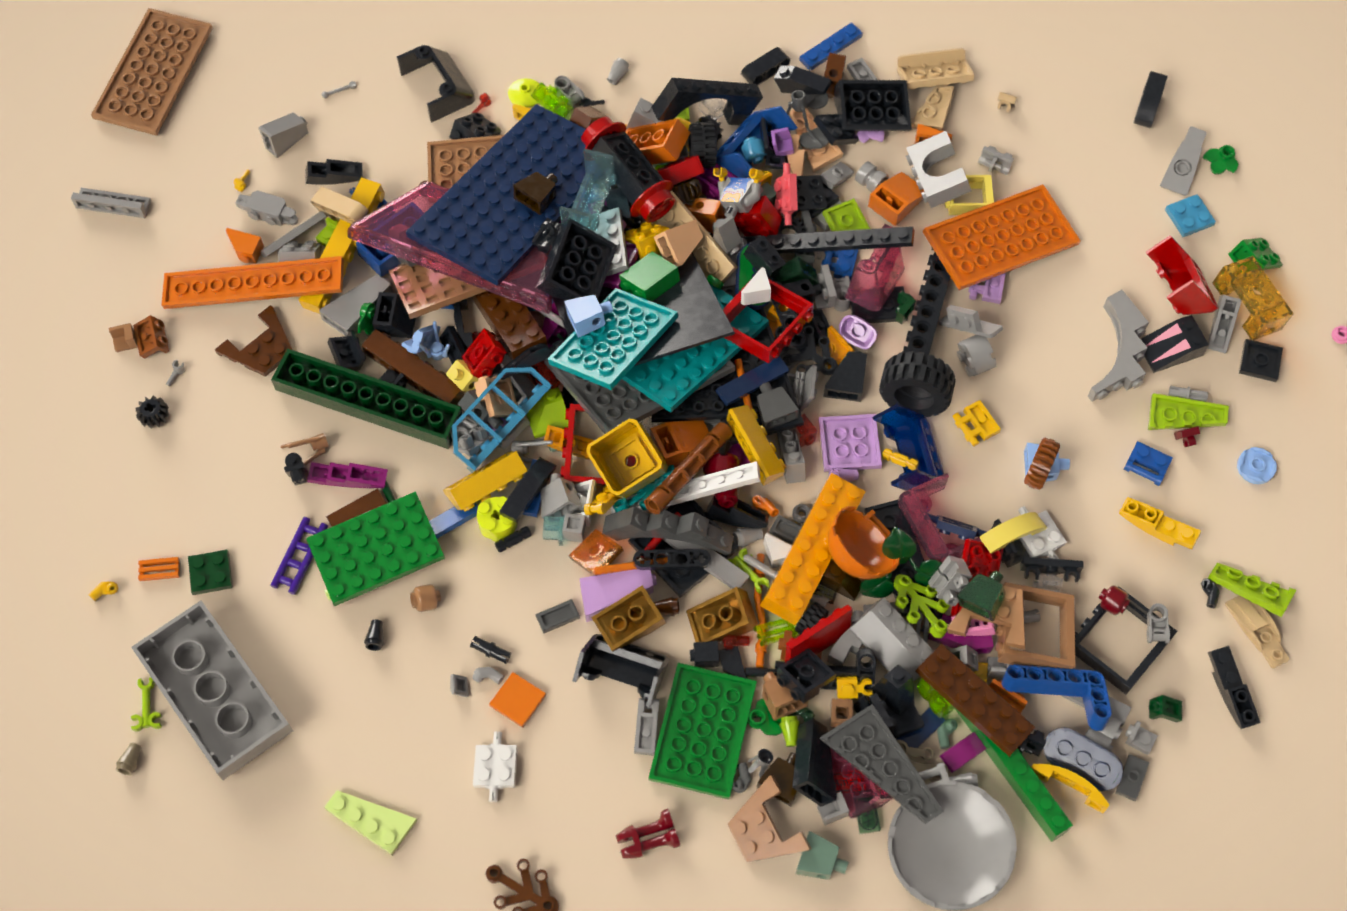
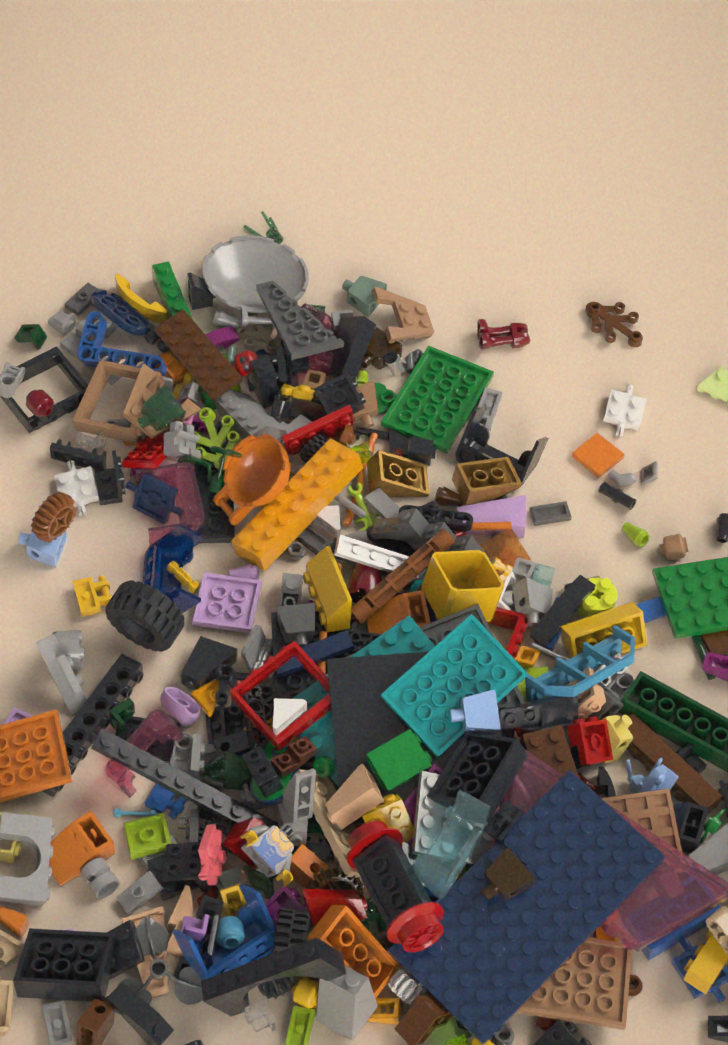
camera: 170 degrees left, 10 degrees down
(456, 348) = (618, 778): black plate -> none
(466, 606) = (636, 534): none -> lime cone
(741, 276) = (297, 754): none -> copper slope
(807, 431) = (265, 619): clear red bracket -> none
(920, 706) = (242, 362): none -> red head
(1012, 530) = (102, 469): light yellow slope -> none
(1012, 802) = (198, 292): none -> black slope

